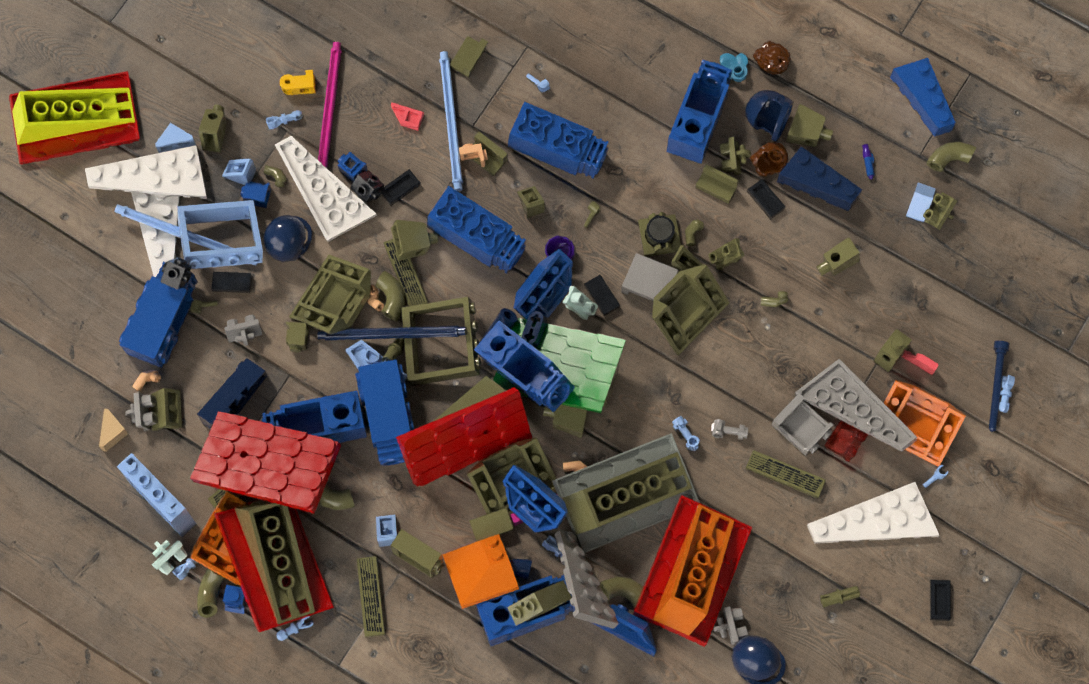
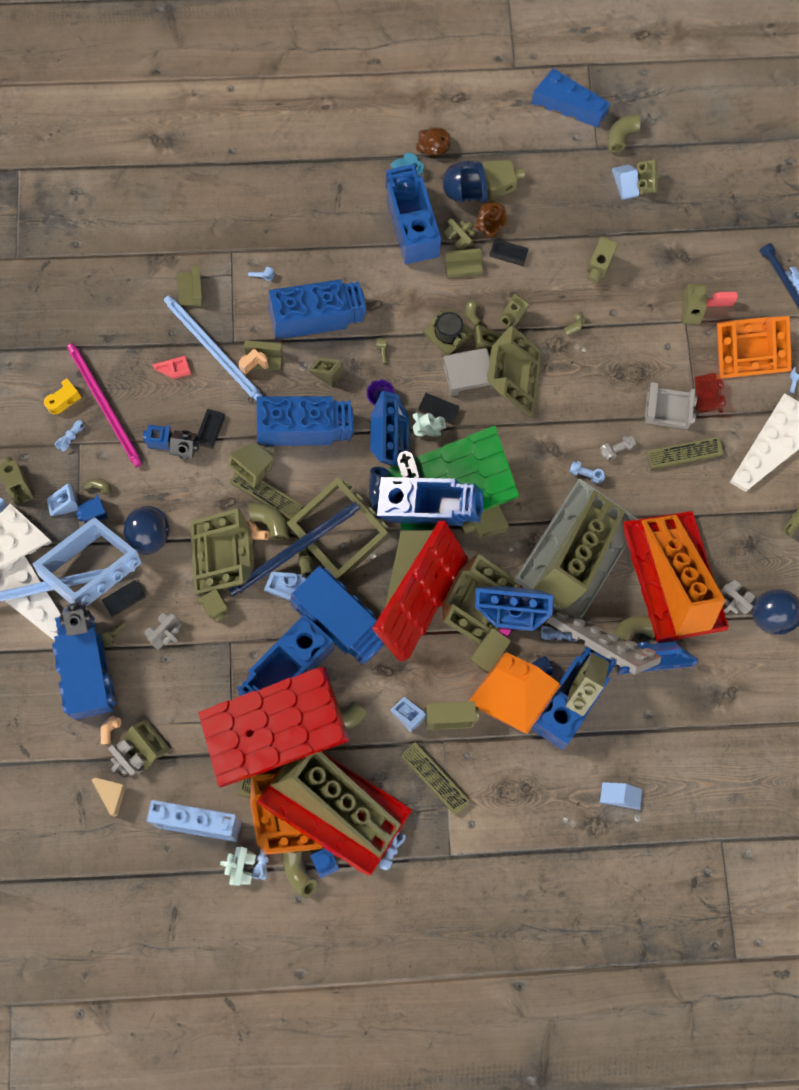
camera: 40 degrees left, 0 degrees up
(234, 392) = (196, 690): dark blue wedge -> none
(328, 198) = (155, 474): white wing -> none
(573, 466) = (520, 557): light nougat arm -> none
(819, 180) = (540, 210): dark blue wedge -> none
(850, 400) = (689, 362): light grey wing -> none
(869, 160) = (564, 175): piece -> none

